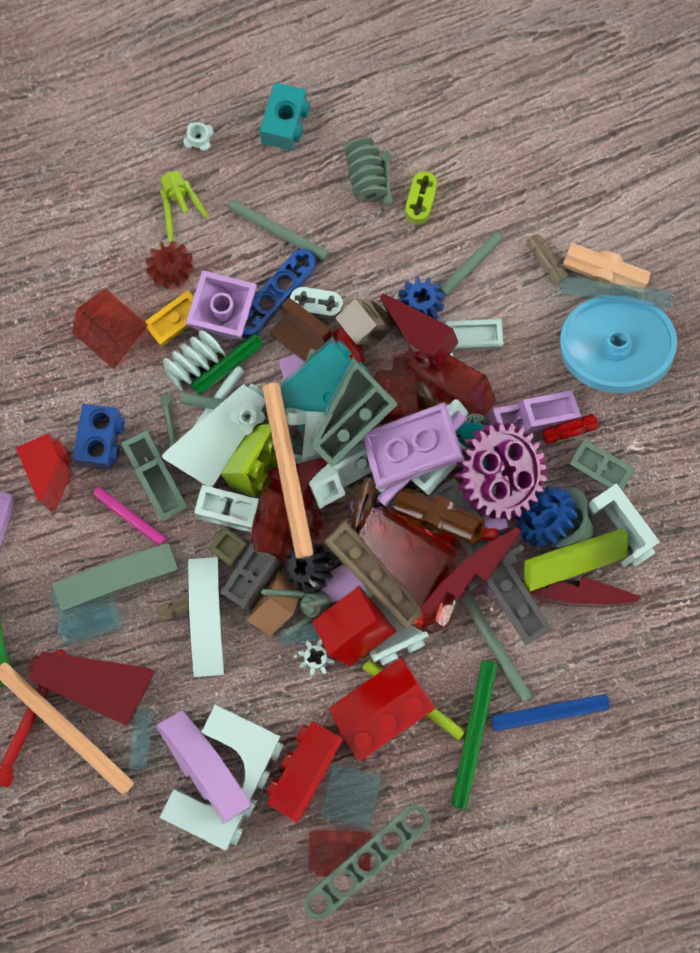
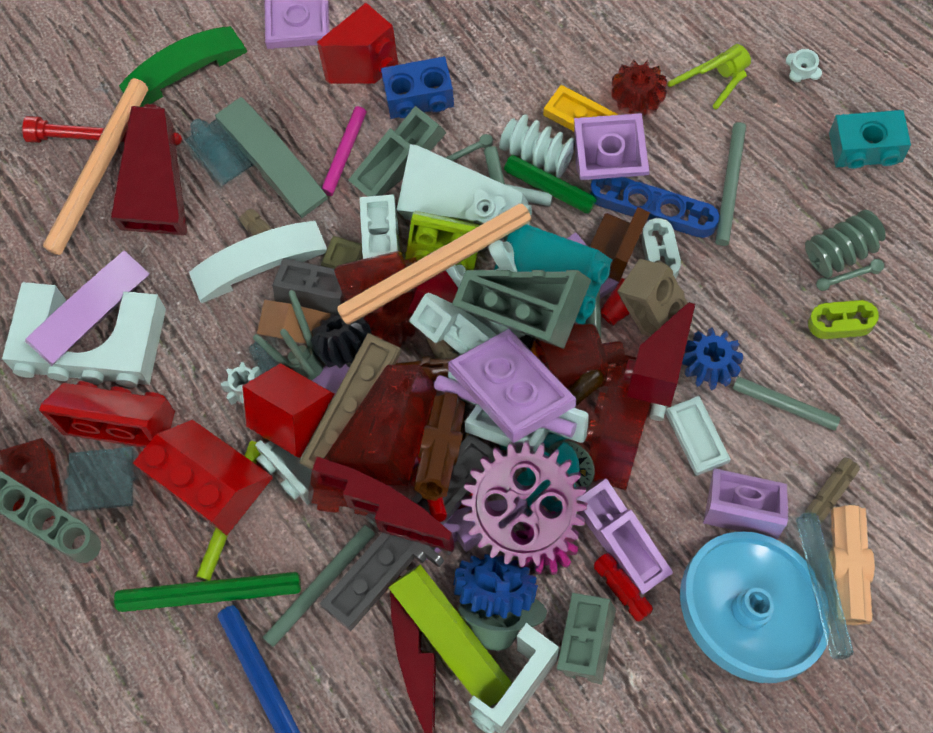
camera: 75 degrees right, 10 degrees down
(107, 327) = (544, 53): clear red slope -> none
(140, 739) = (106, 243): clear light blue axle -> none
(537, 319) = (746, 504): none -> lavender slope

